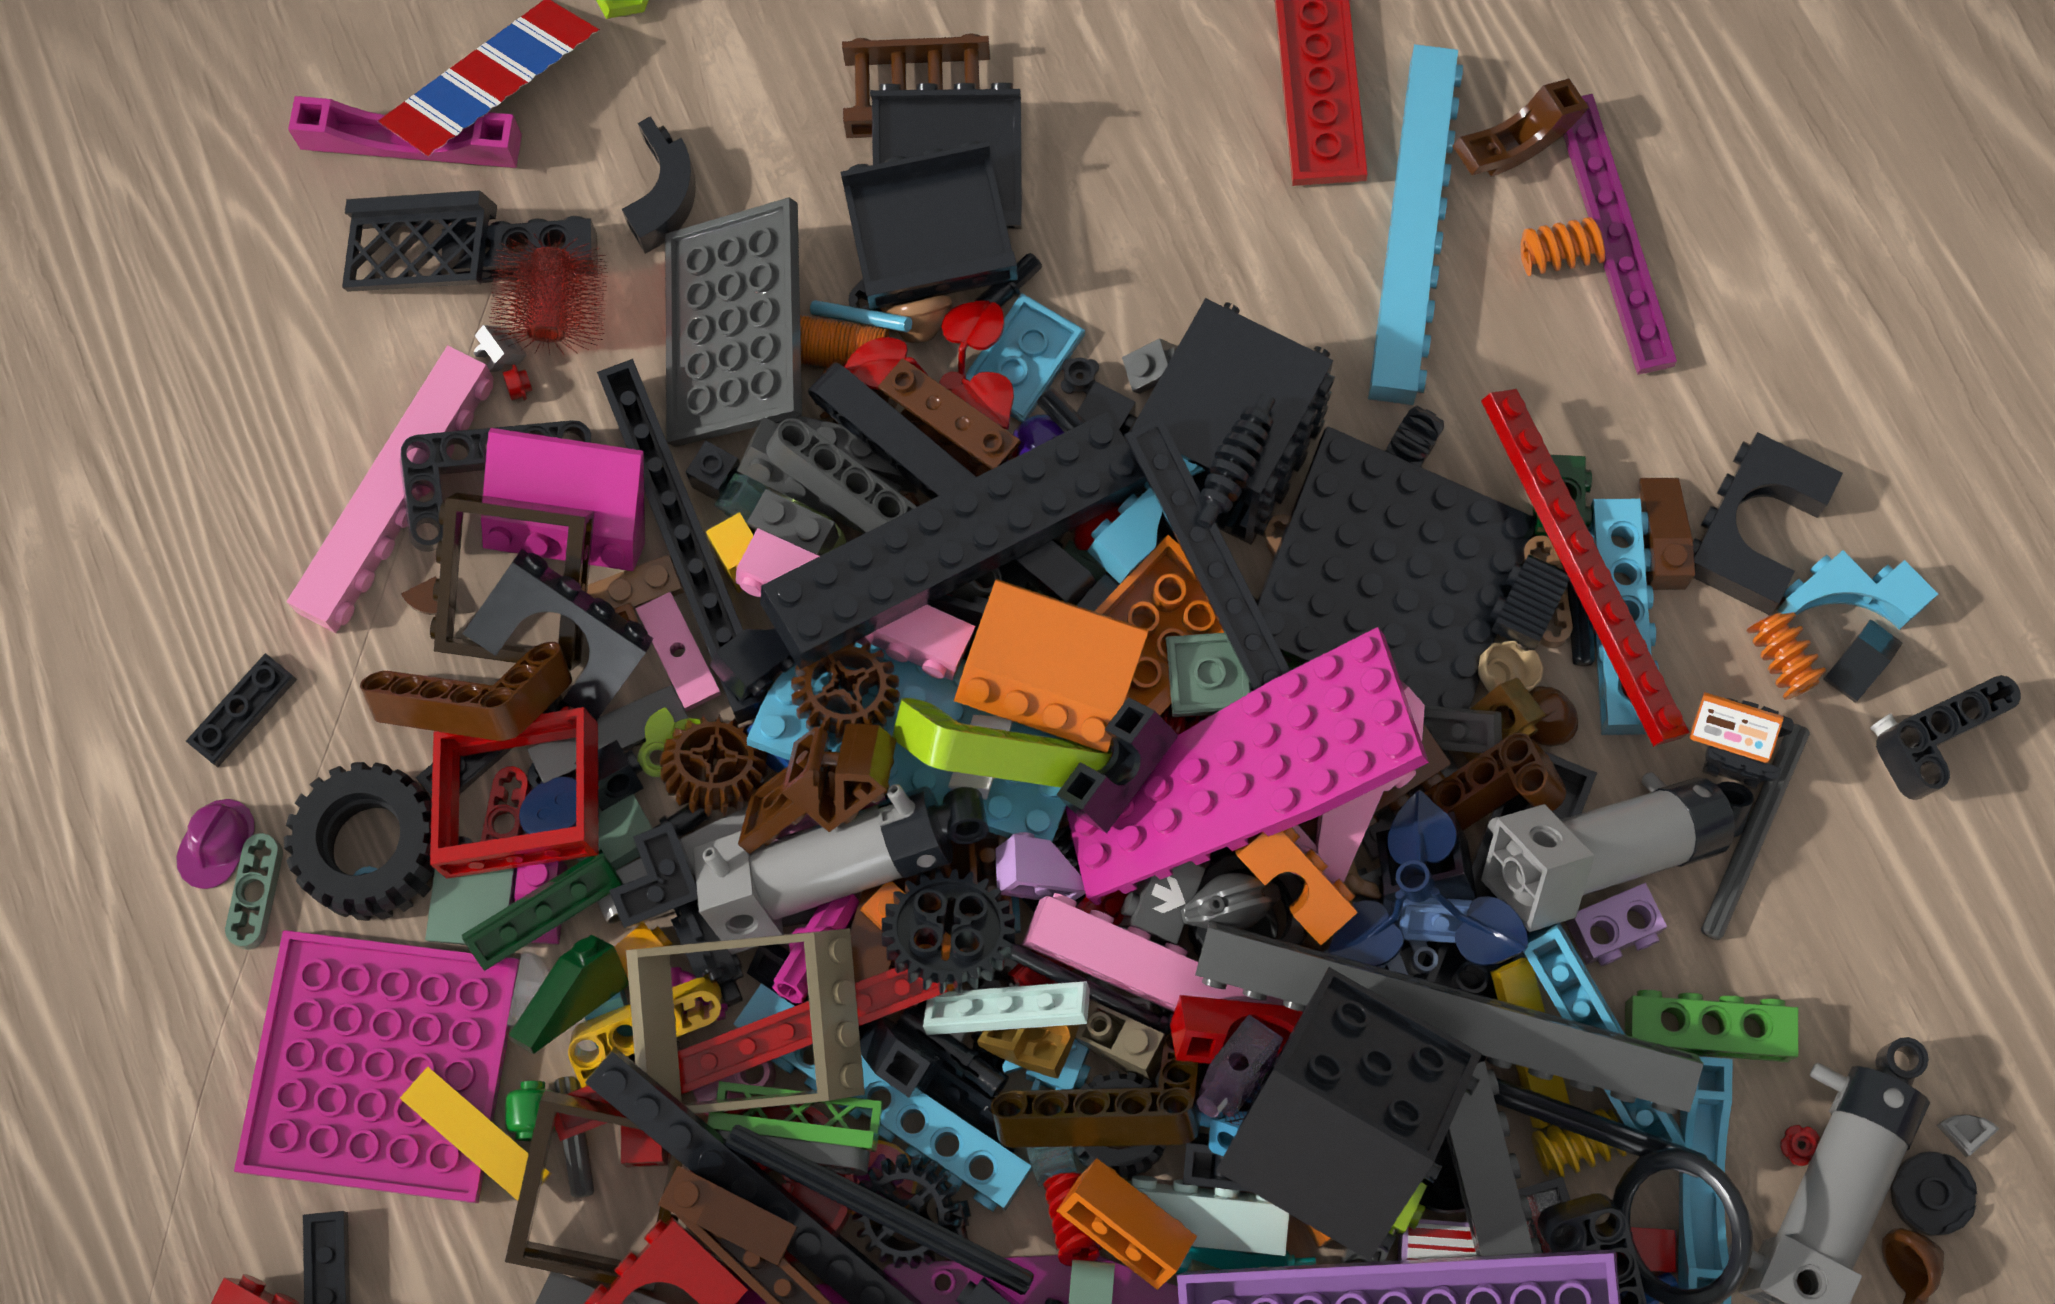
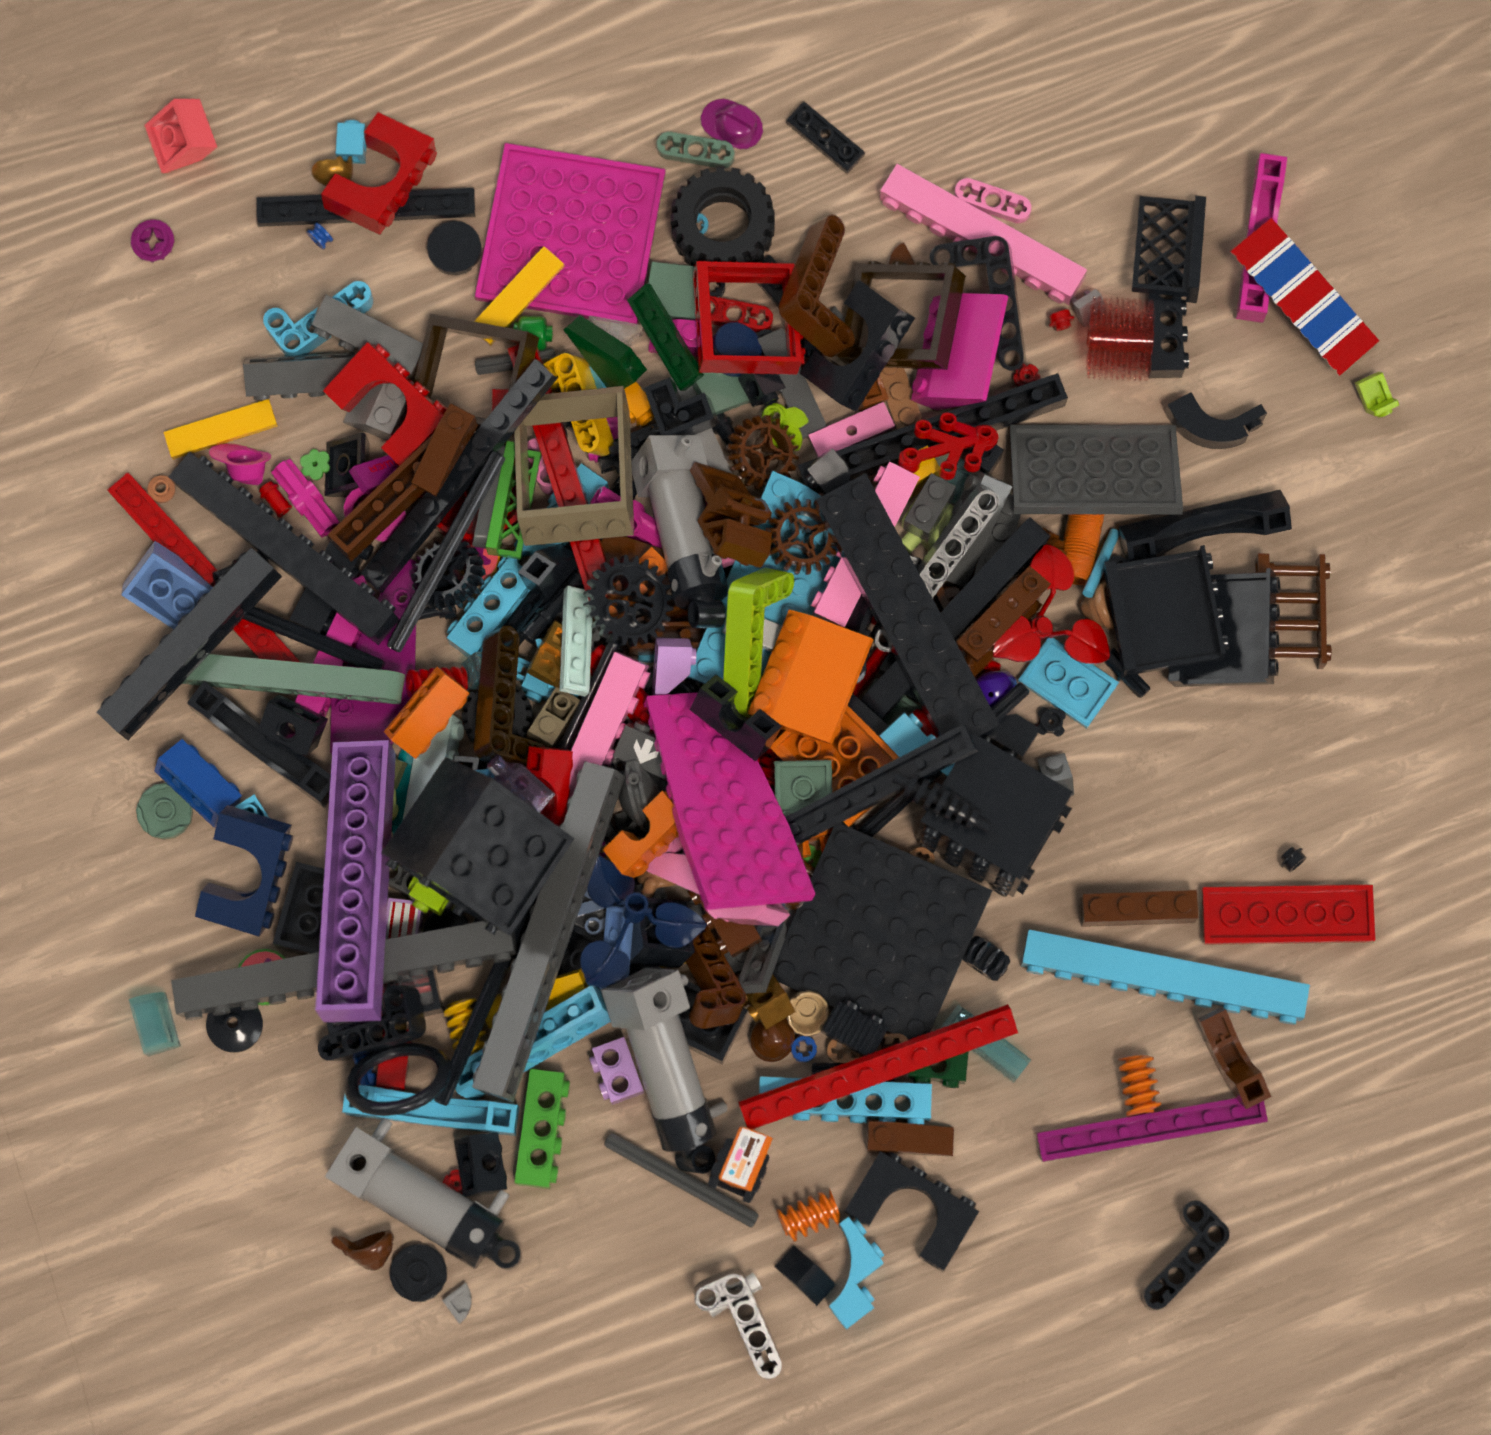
camera: 90 degrees right, 5 degrees up
(361, 457) = (1014, 200): none -> bright pink beam
(396, 1241) = (454, 248): none -> black tile
(607, 427) = (1029, 369): none -> red plate
(691, 465) = (981, 437): none -> red plant
(788, 127) = (1254, 514): none -> black arch
(1245, 77) = (1292, 859): none -> black plate
(1328, 255) = (1139, 908): none -> reddish brown brick
(1548, 410) = (999, 1055): none -> clear light blue piece
(1562, 664) = (809, 1042): none -> blue bush
(1776, 1109) = (474, 1177): none -> black brick
(1779, 191) = (1181, 1260): none -> black beam

